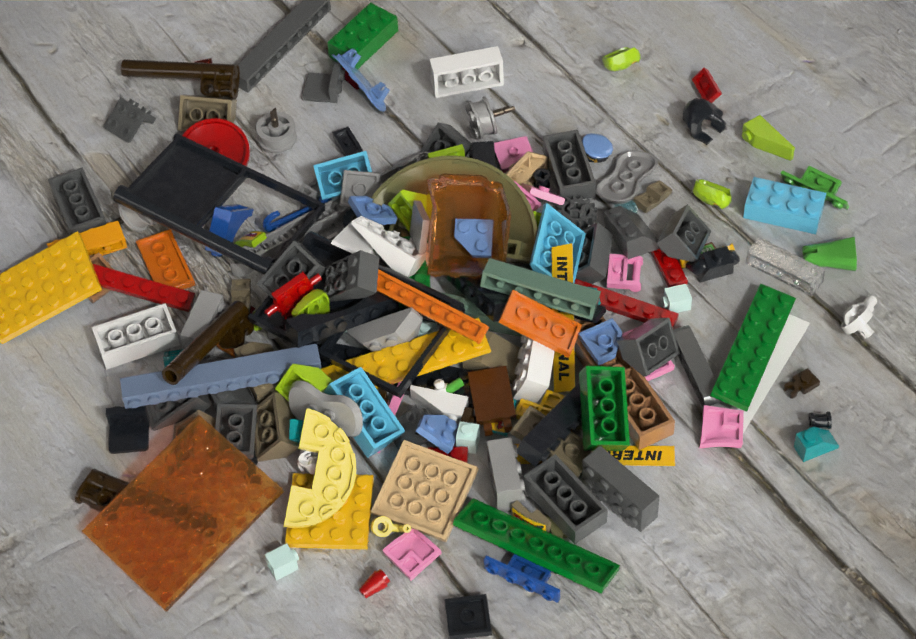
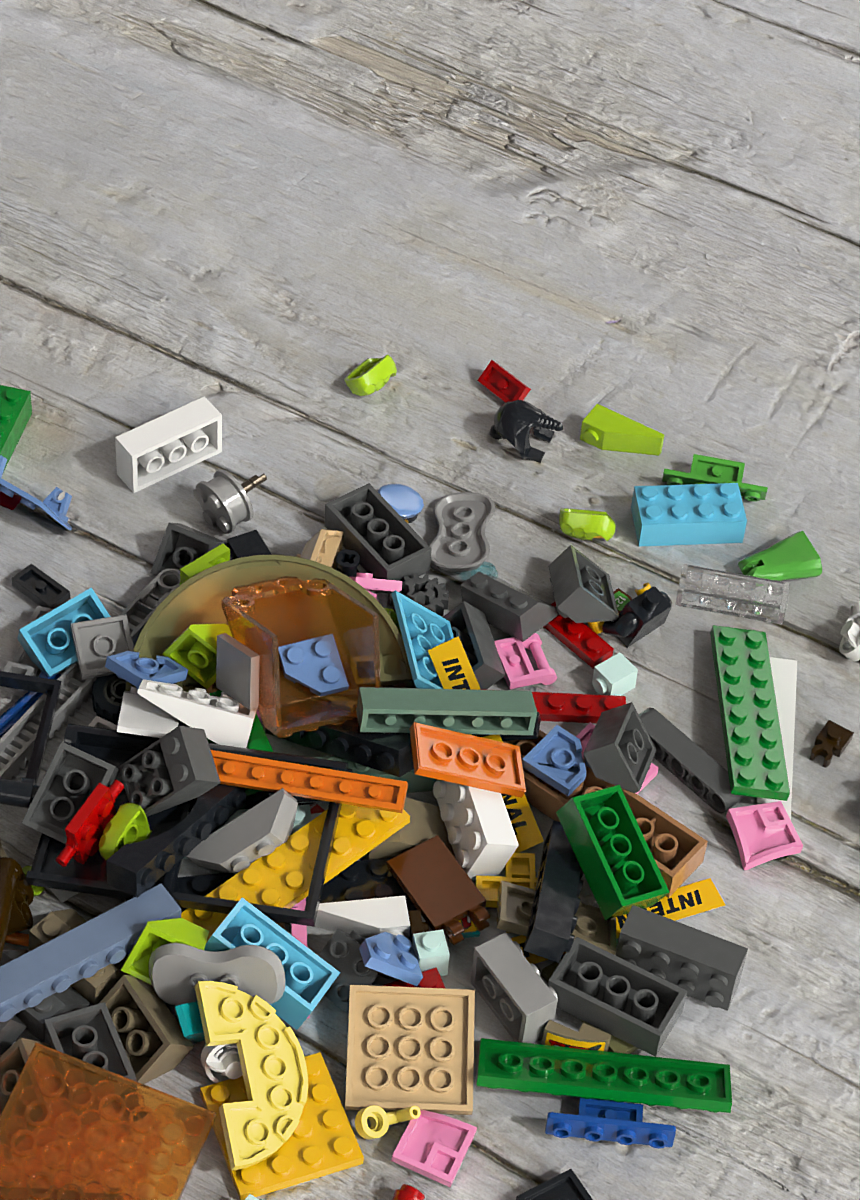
camera: 30 degrees left, 5 degrees down
(450, 388) = (373, 890): arm -> none
(510, 151) = (286, 535): bright pink plate -> none
(654, 195) = (507, 548): dark tan slope -> none

